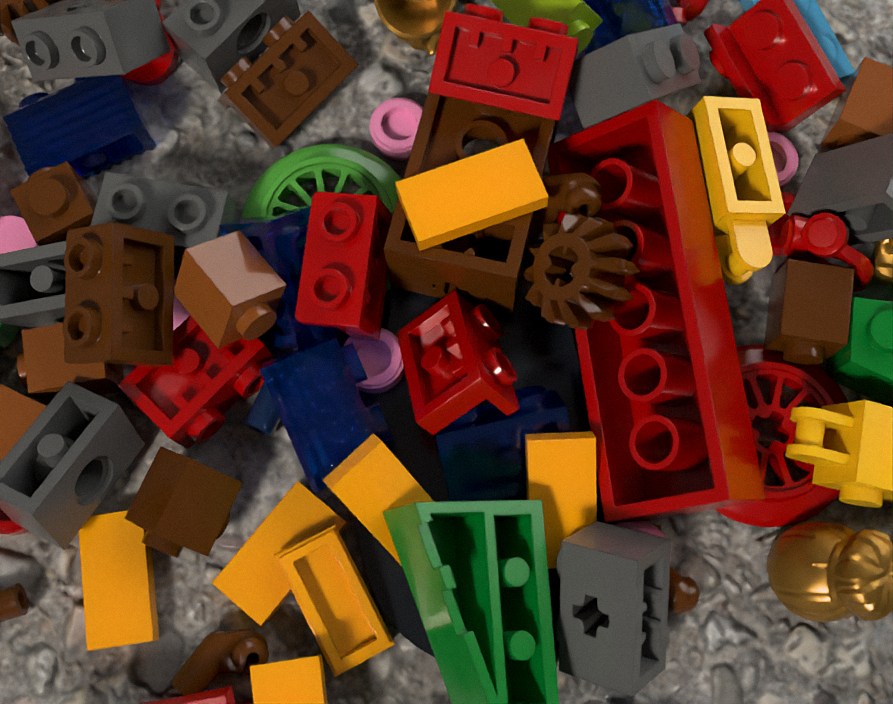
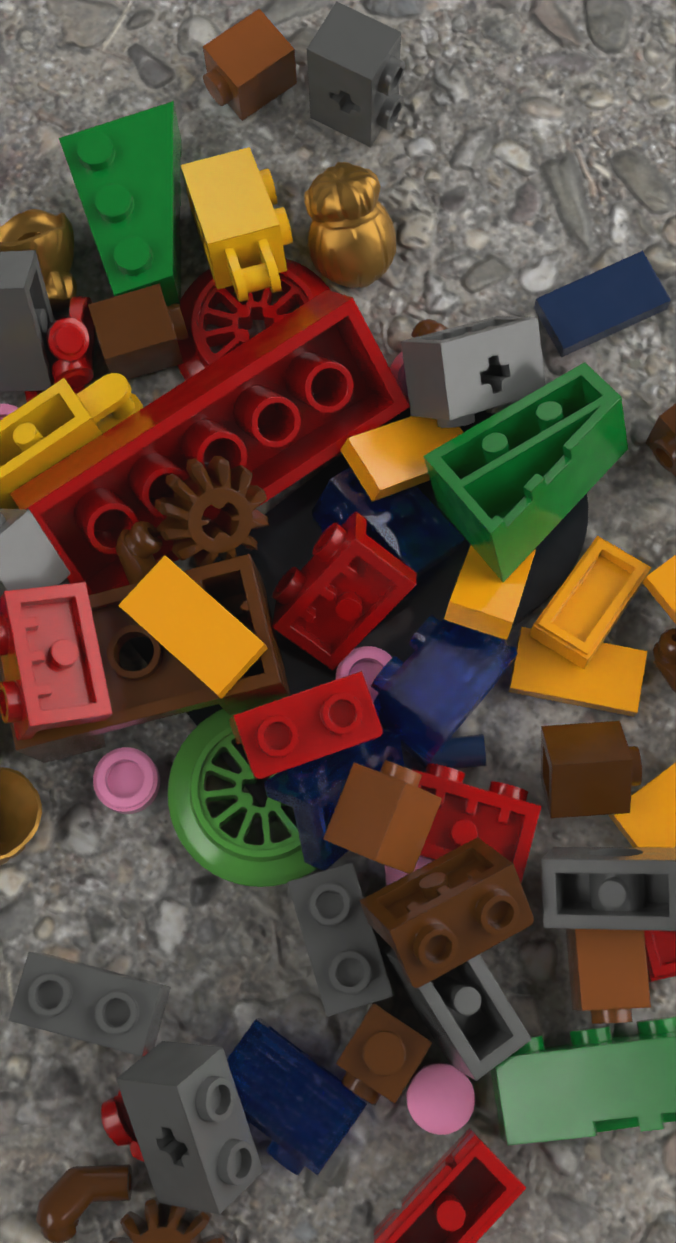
camera: 120 degrees left, 0 degrees up
(46, 372) = (528, 966): dark orange brick -> none
(288, 79) = (129, 917): reddish brown bracket -> none

